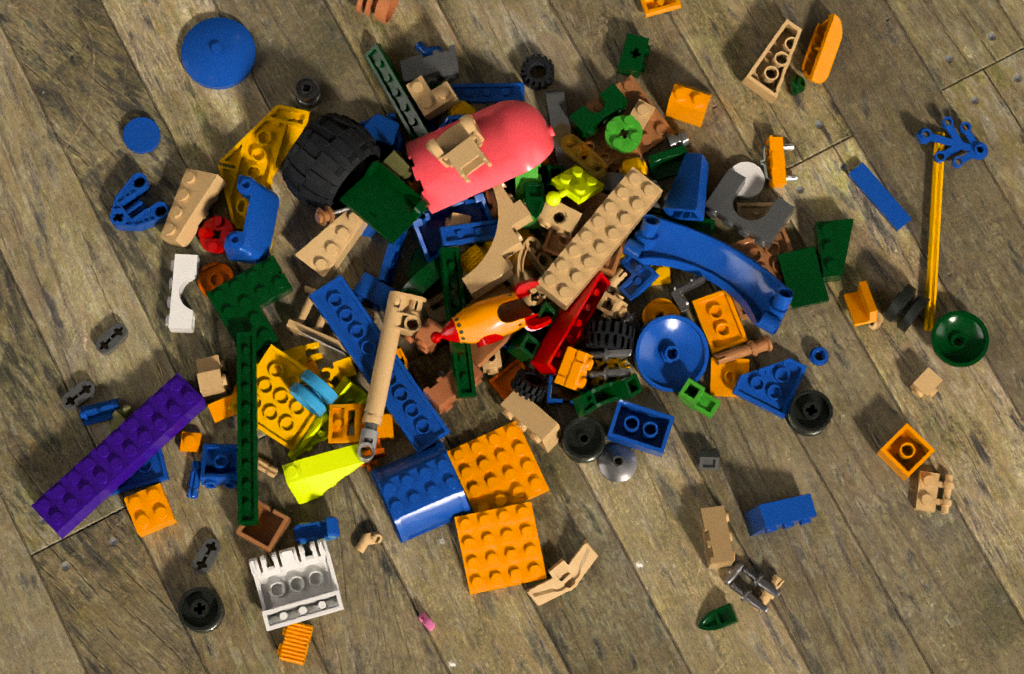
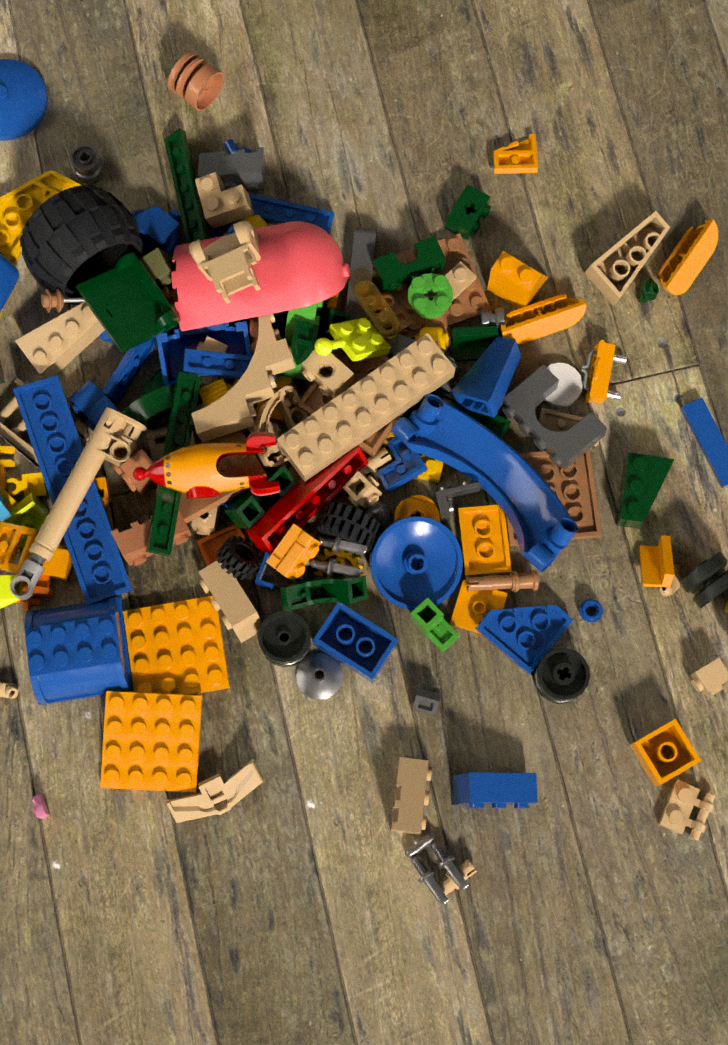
camera: 15 degrees right, 0 degrees up
(537, 82) = (354, 193): black tyre -> none
(718, 129) = (543, 318): none -> light orange brick
(719, 618) = (387, 896): dark green plate -> none
(803, 276) = (596, 514): dark green tile -> none

